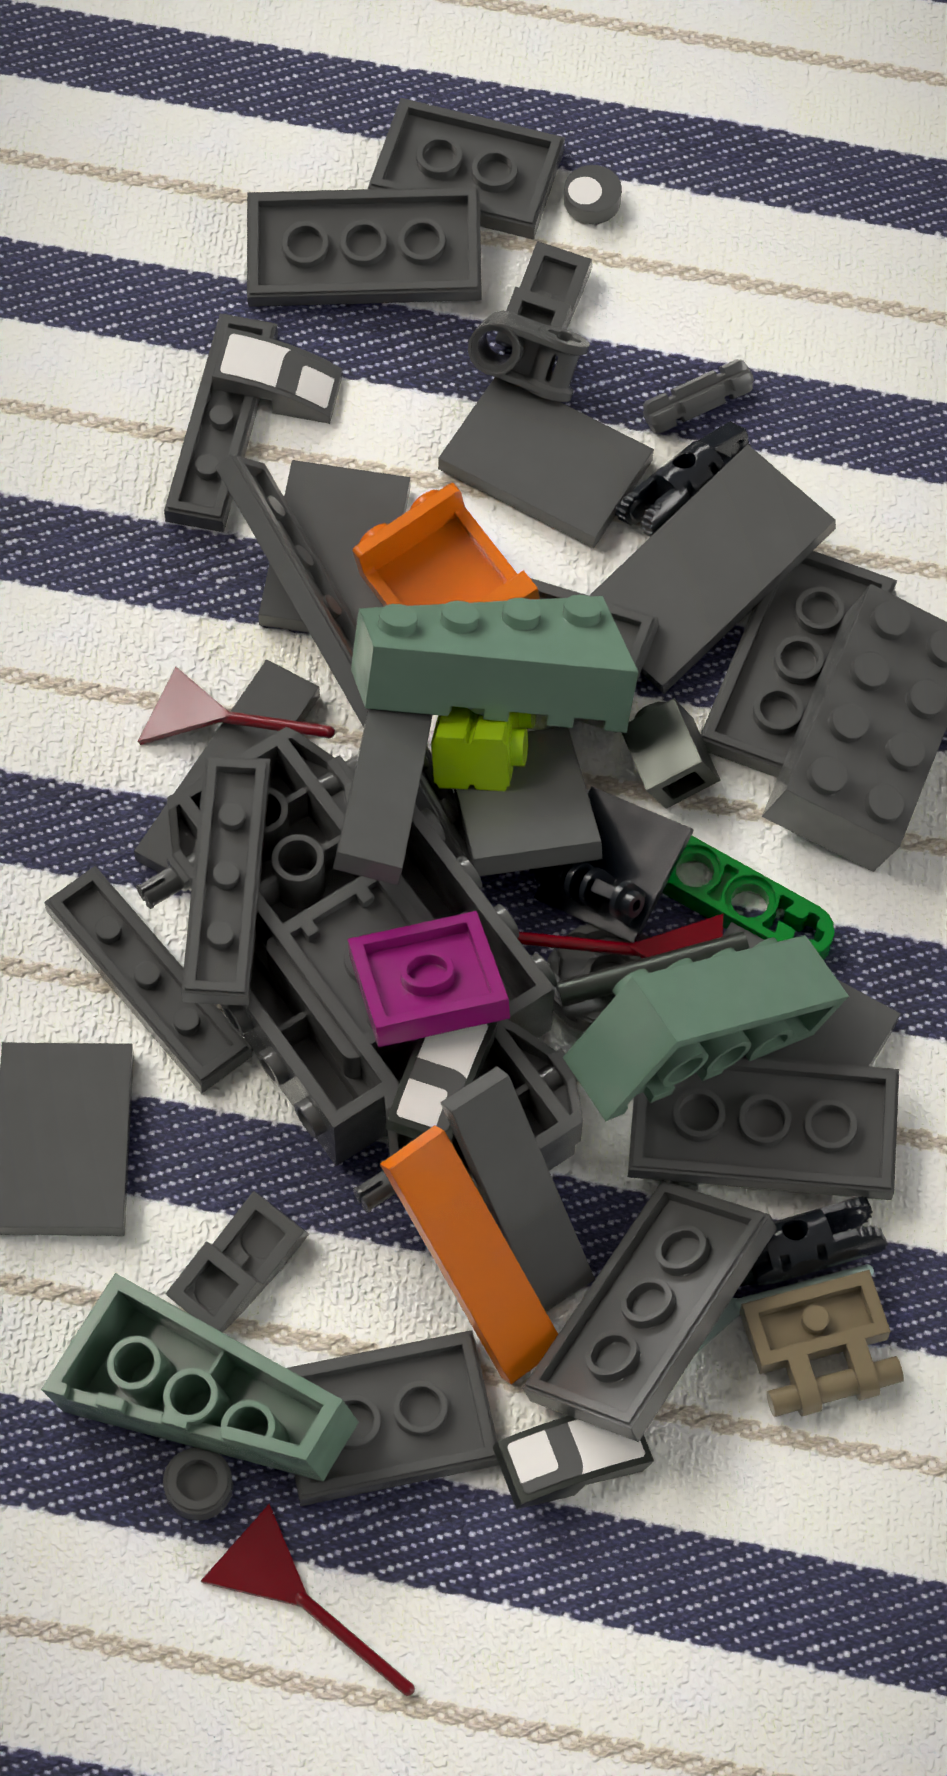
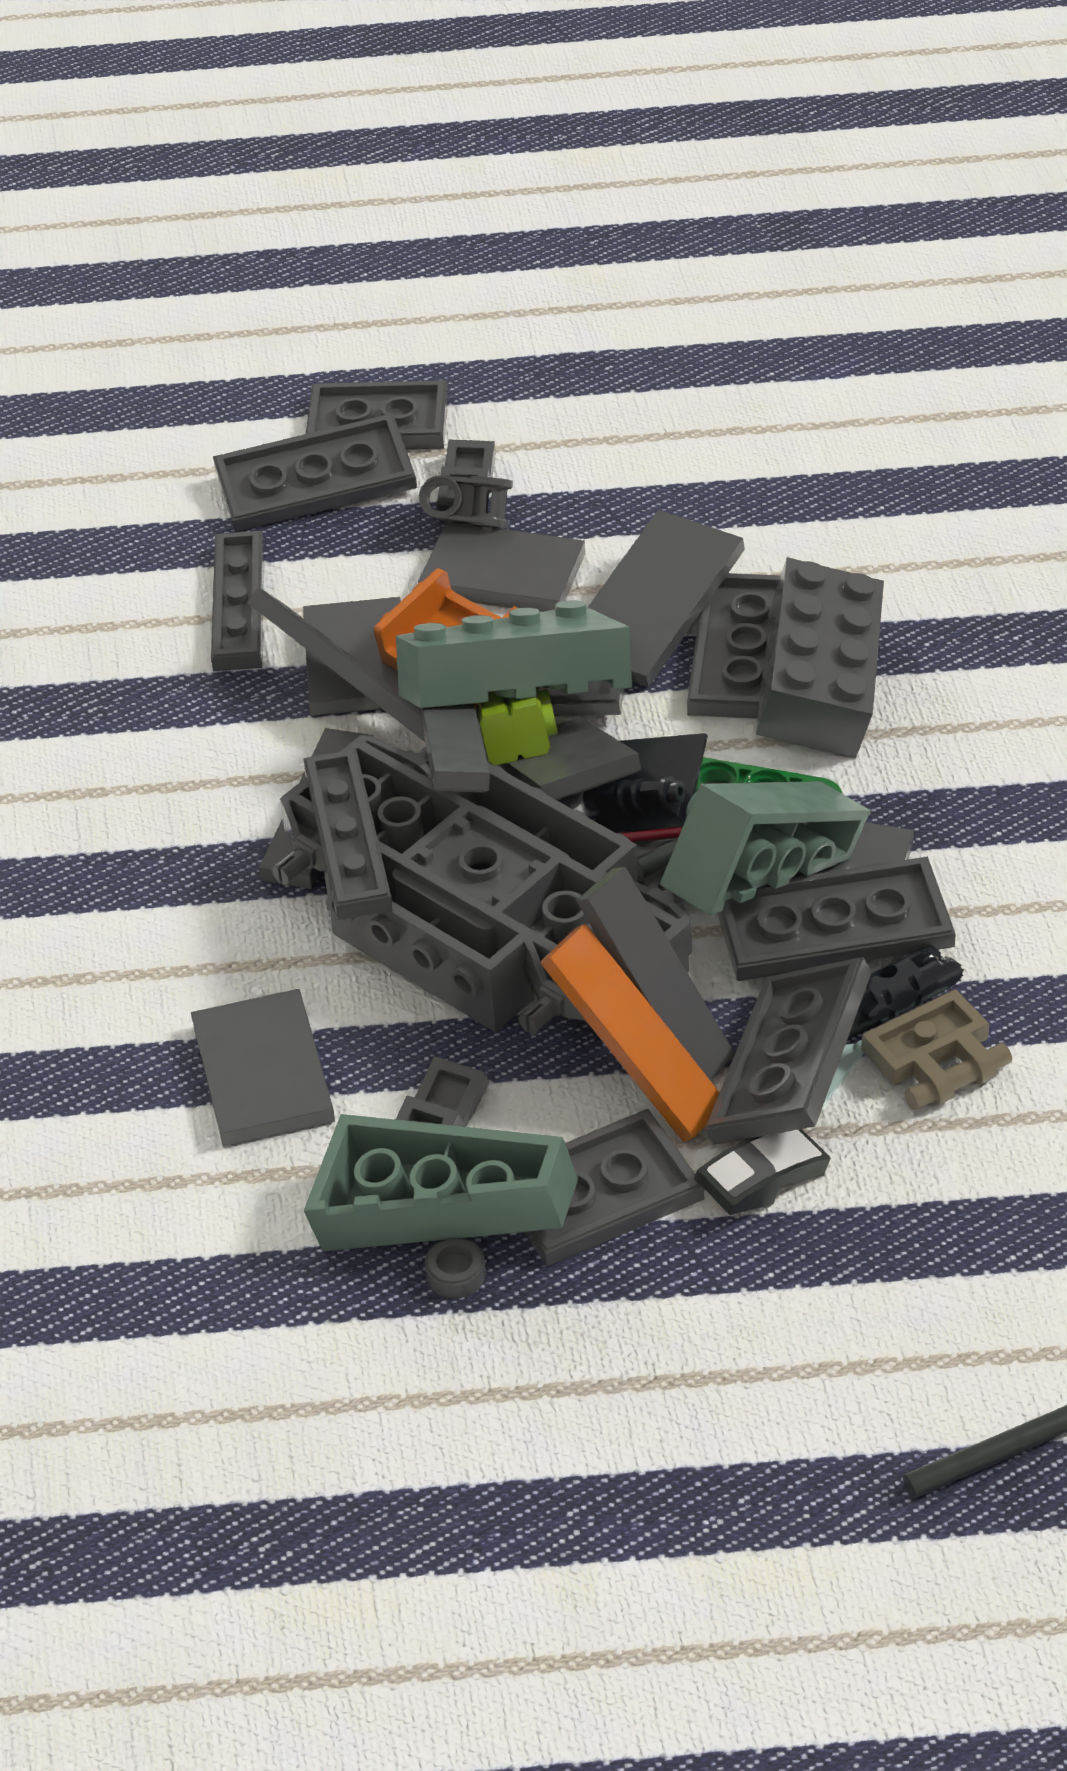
camera: 10 degrees left, 20 degrees down
(147, 979) = (298, 950): dark grey tile -> none
(188, 707) = (270, 772): piece -> none
(264, 1568) = (531, 1313): dark red piece -> none
(272, 370) = (260, 554): slope -> none
(428, 979) = (535, 846): magenta plate -> none
(433, 1073) = (557, 904): slope -> none
(592, 194) = (480, 410): dark grey tile -> none
(669, 752) = (667, 705): pearl dark grey brick -> none
(681, 478) = (608, 552): black hinge -> none
(698, 396) = (606, 505): dark grey axle -> none

